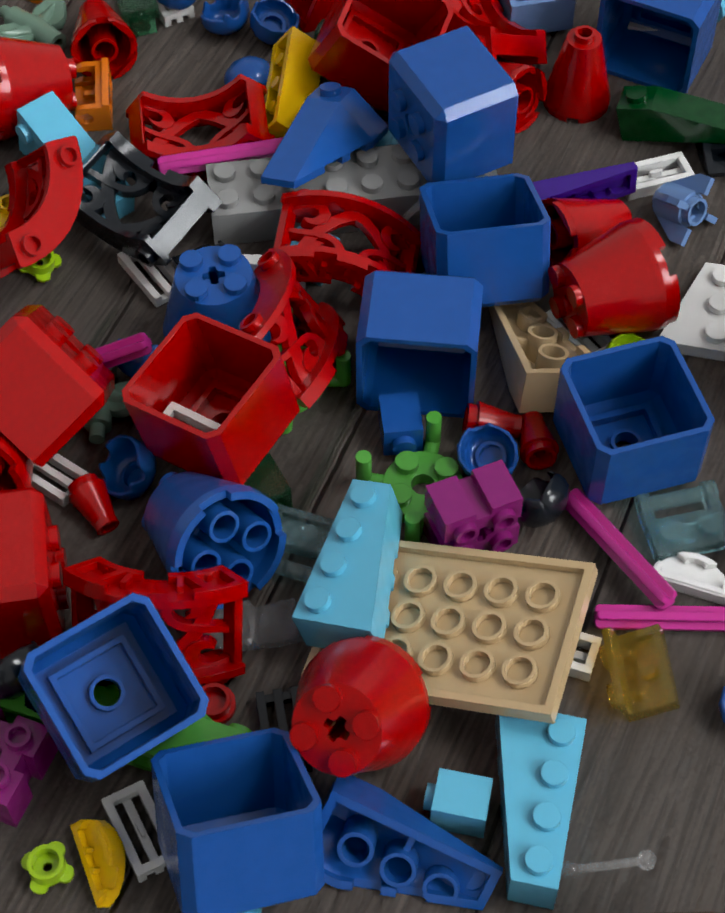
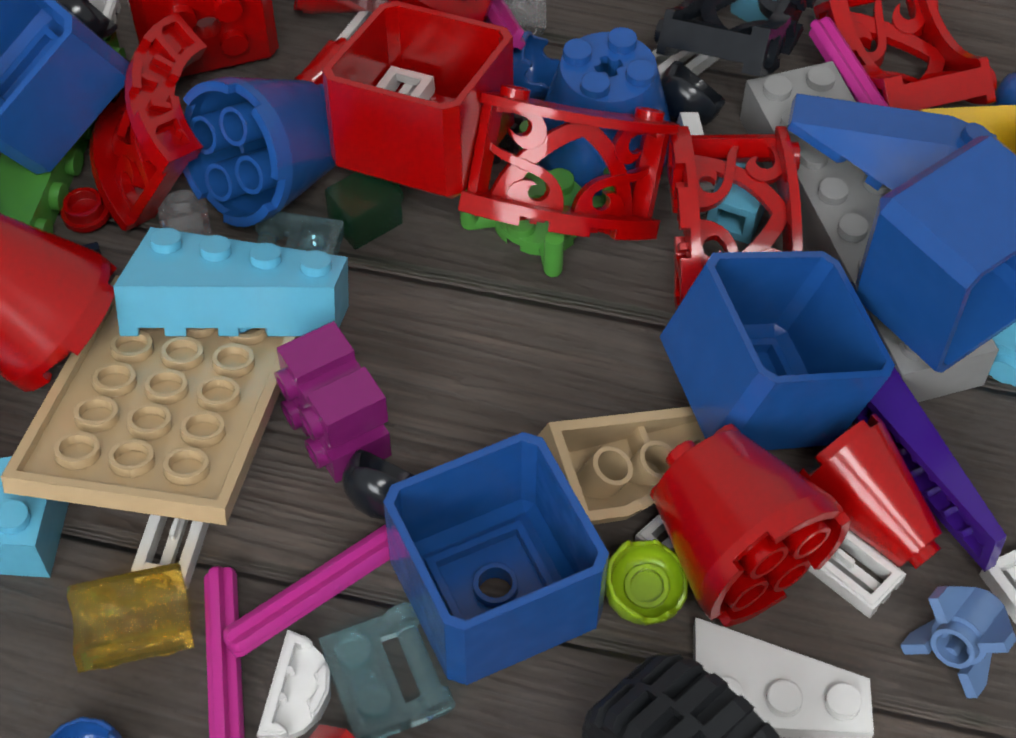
camera: 80 degrees right, 0 degrees up
(400, 422) = (482, 326): blue brick -> none
(412, 469) = (418, 347): bright green plate -> none
(420, 338) = (585, 303): blue plate -> none
(483, 413) = (505, 412): red cone -> none
(486, 445) = (443, 417): blue hair -> none

